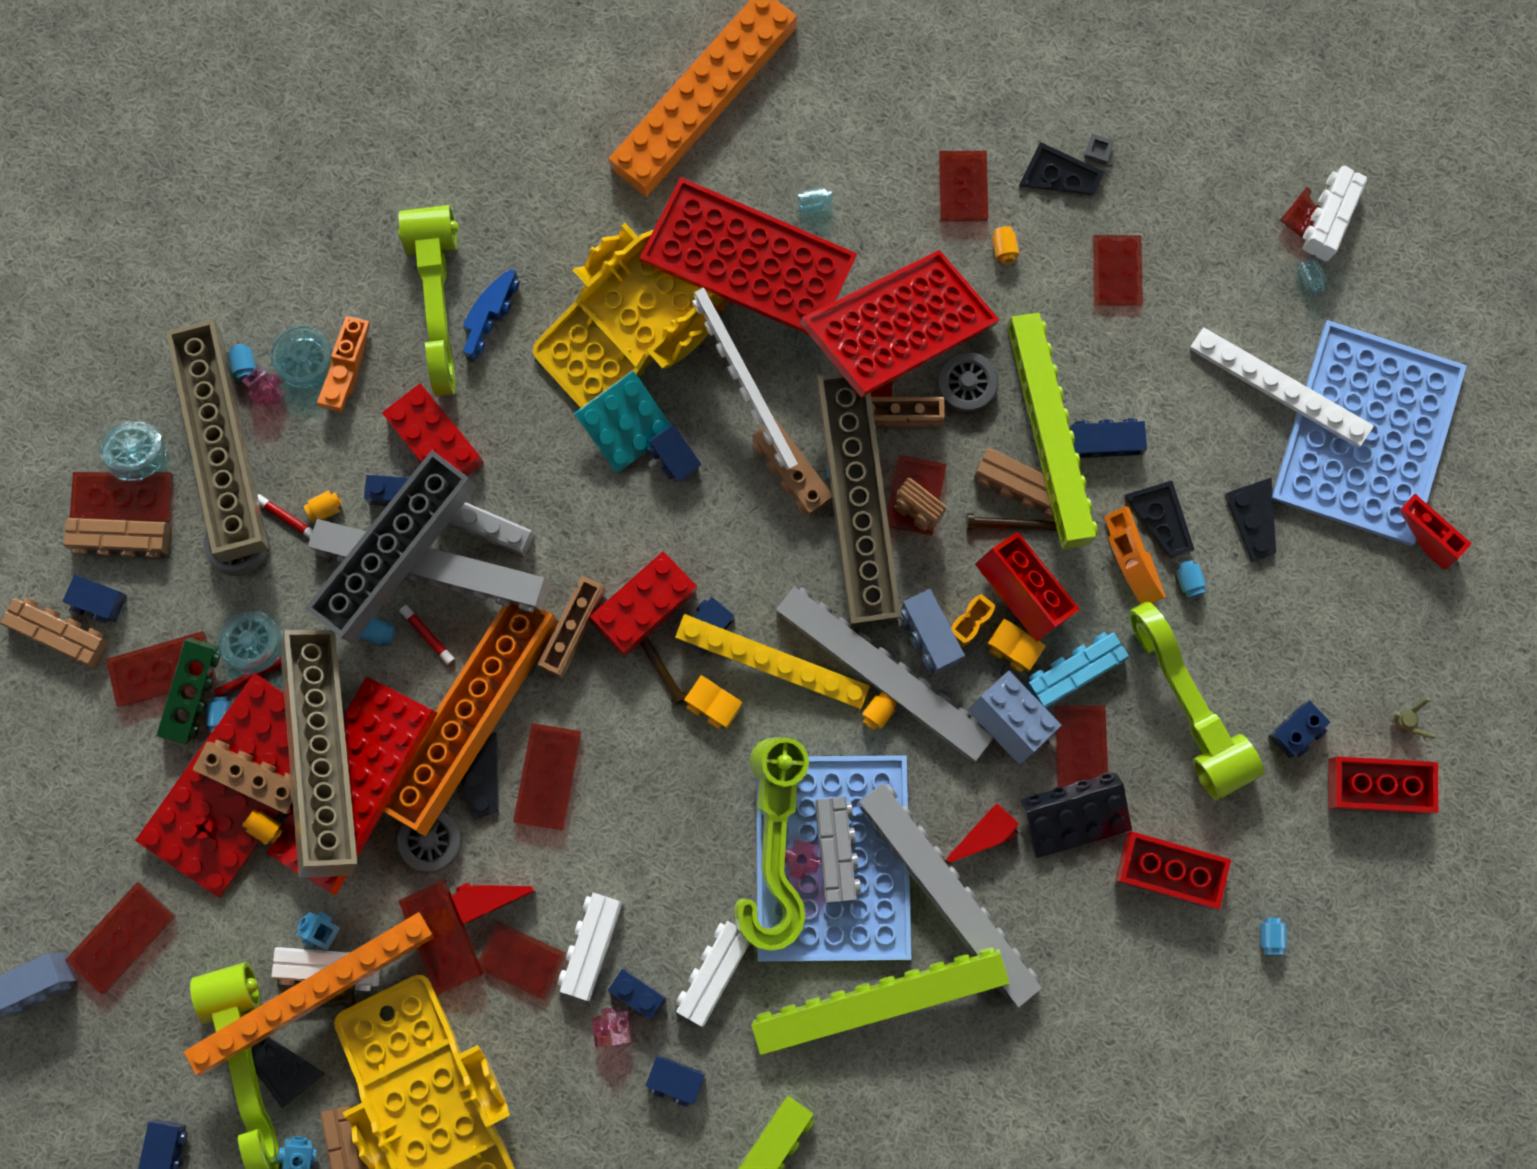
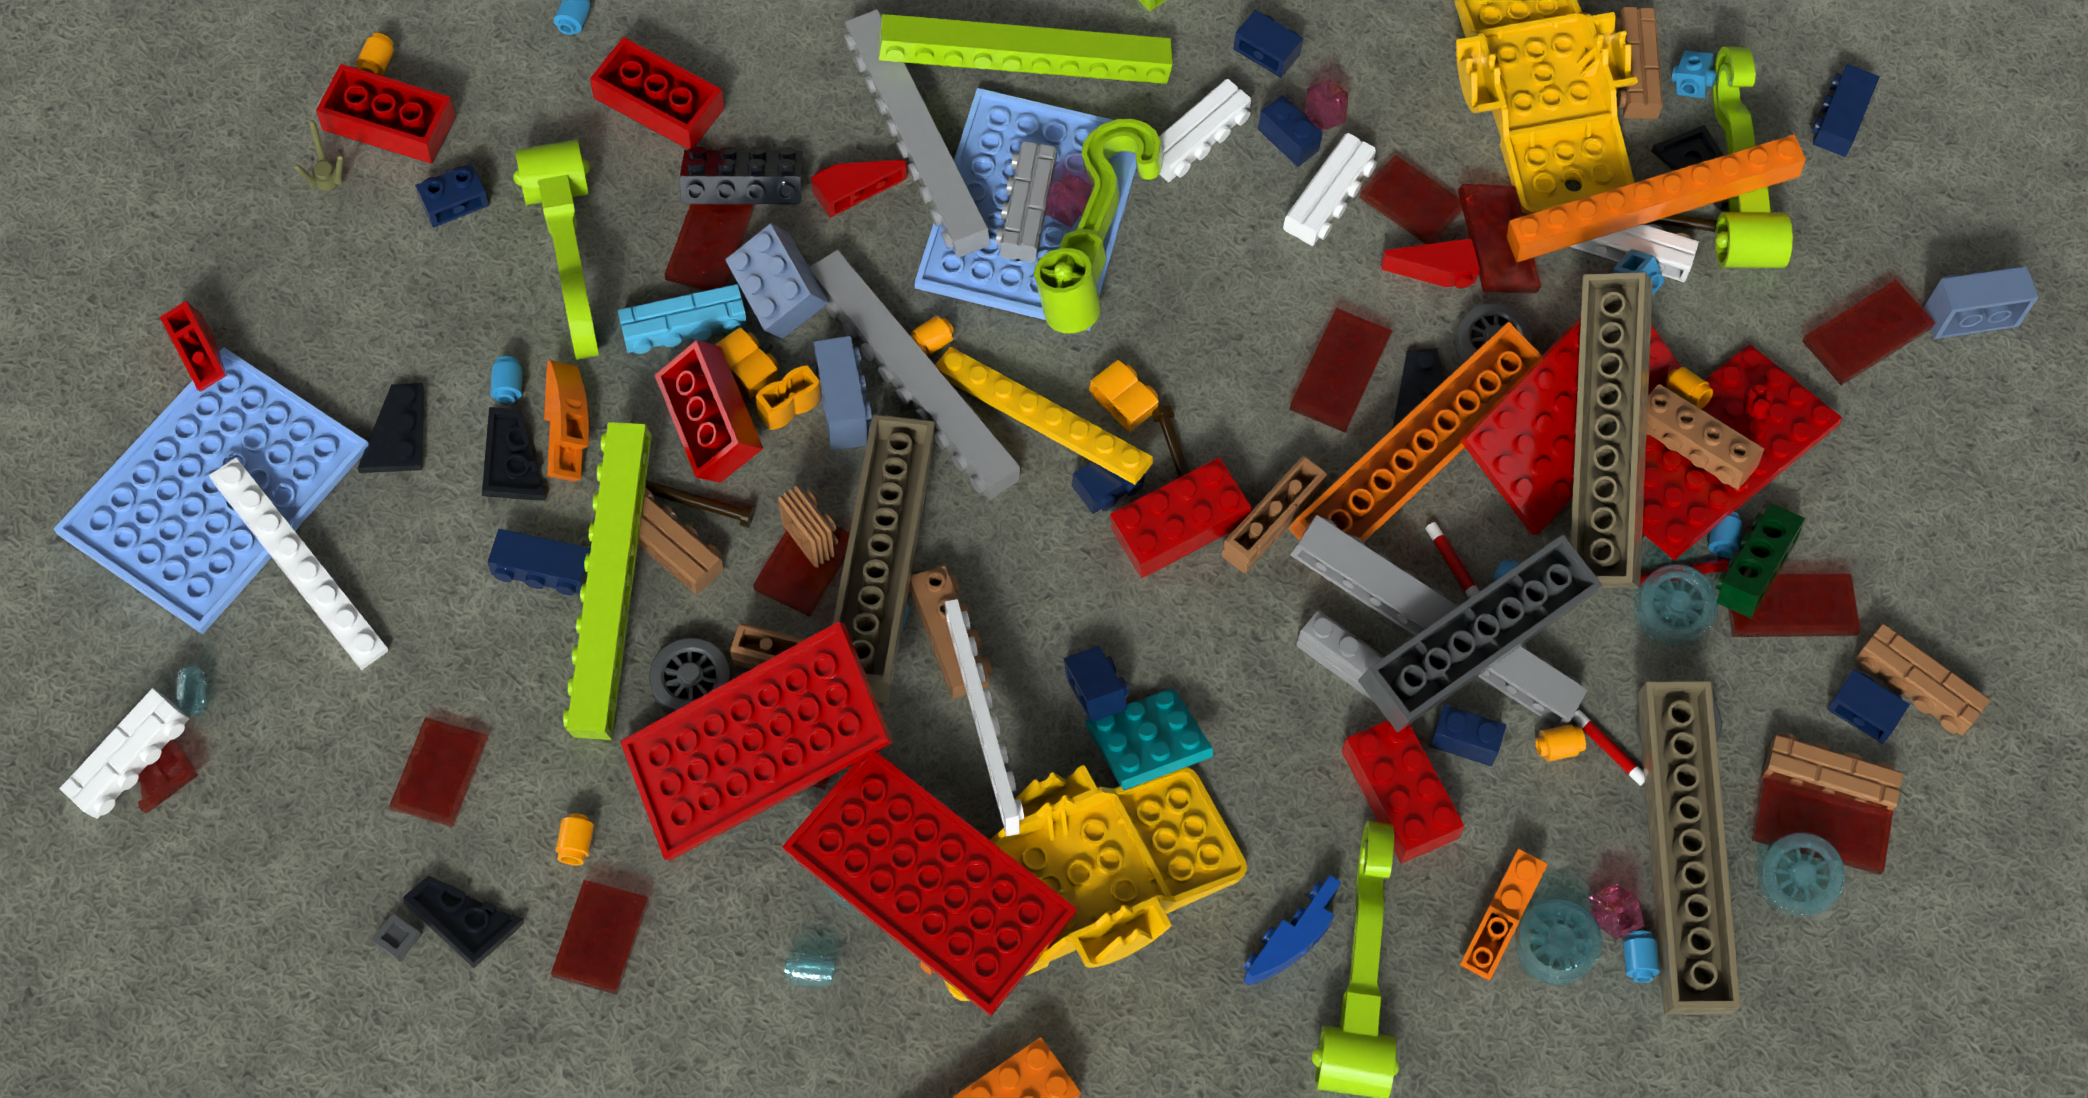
camera: 170 degrees left, 15 degrees down
(1416, 844) = (375, 54): none -> light orange brick

